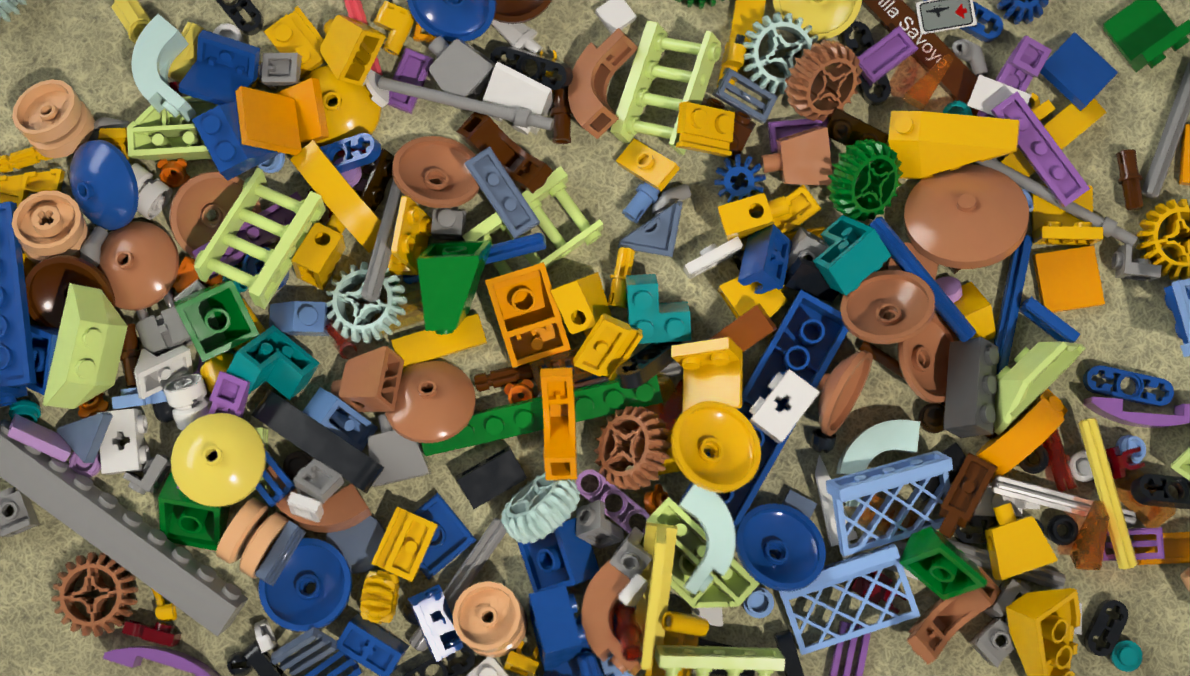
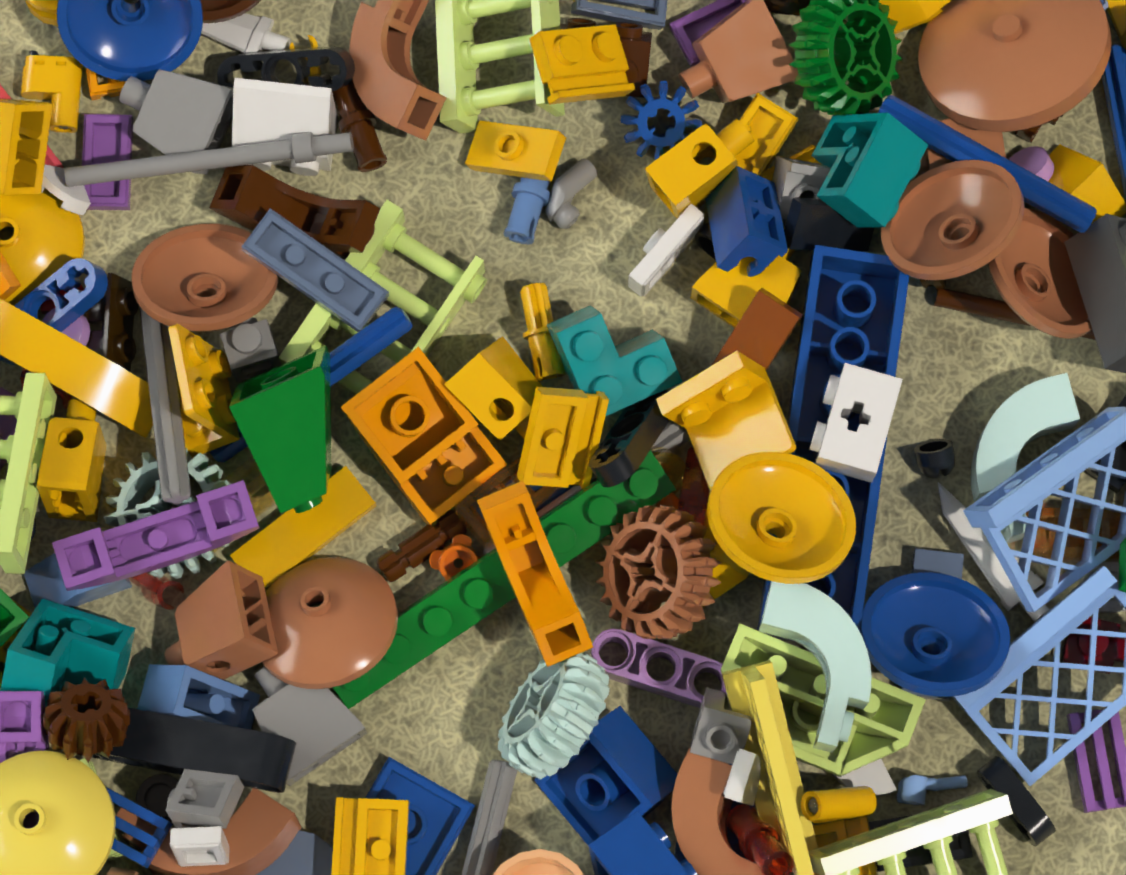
camera: 20 degrees left, 5 degrees down
(268, 408) = (86, 719): none -> reddish brown gear
(348, 317) = (156, 540): none -> medium lavender slope
(491, 477) = (461, 701): black hinge -> none
(594, 528) = (649, 713): light grey bracket -> none
(654, 499) = (719, 638): orange plate -> none
(657, 234) = (569, 248): sand blue tile -> none
(733, 629) = (913, 788): none -> light blue hand
(759, 603) = (935, 735): light blue plate -> none
(842, 390) = (935, 369): nougat dish -> none
(932, 418) = (1083, 363): dark brown plate -> none

